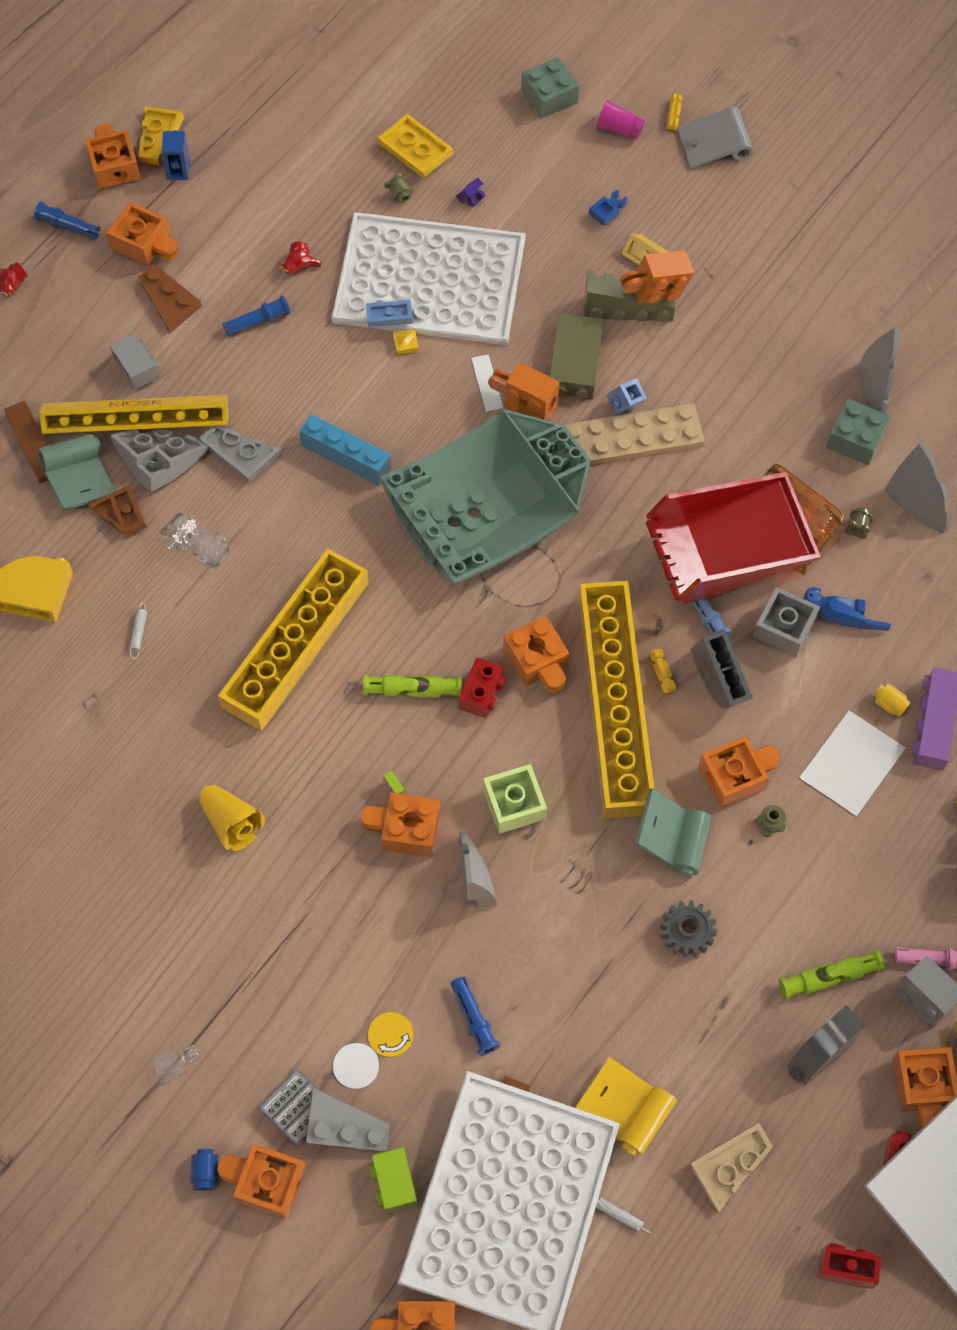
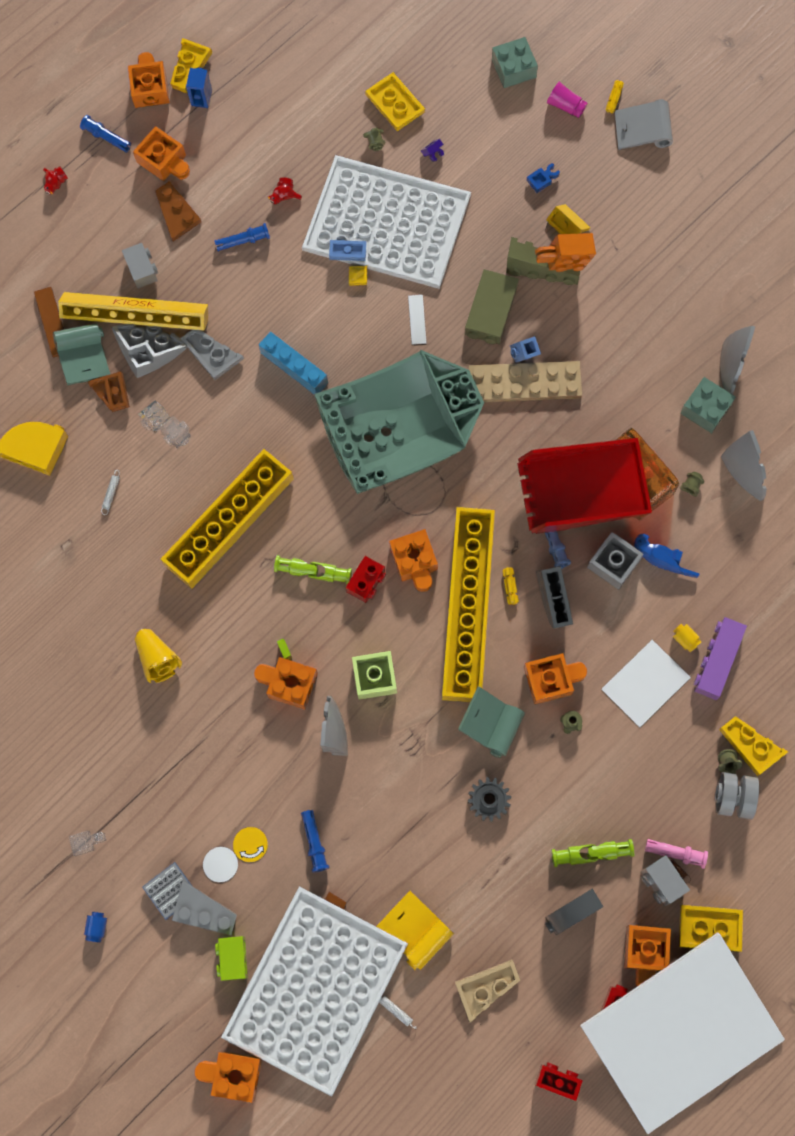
camera: 15 degrees right, 10 degrees up
(264, 1179) = (136, 943): orange brick -> none
(527, 391) = (445, 335): orange brick -> none

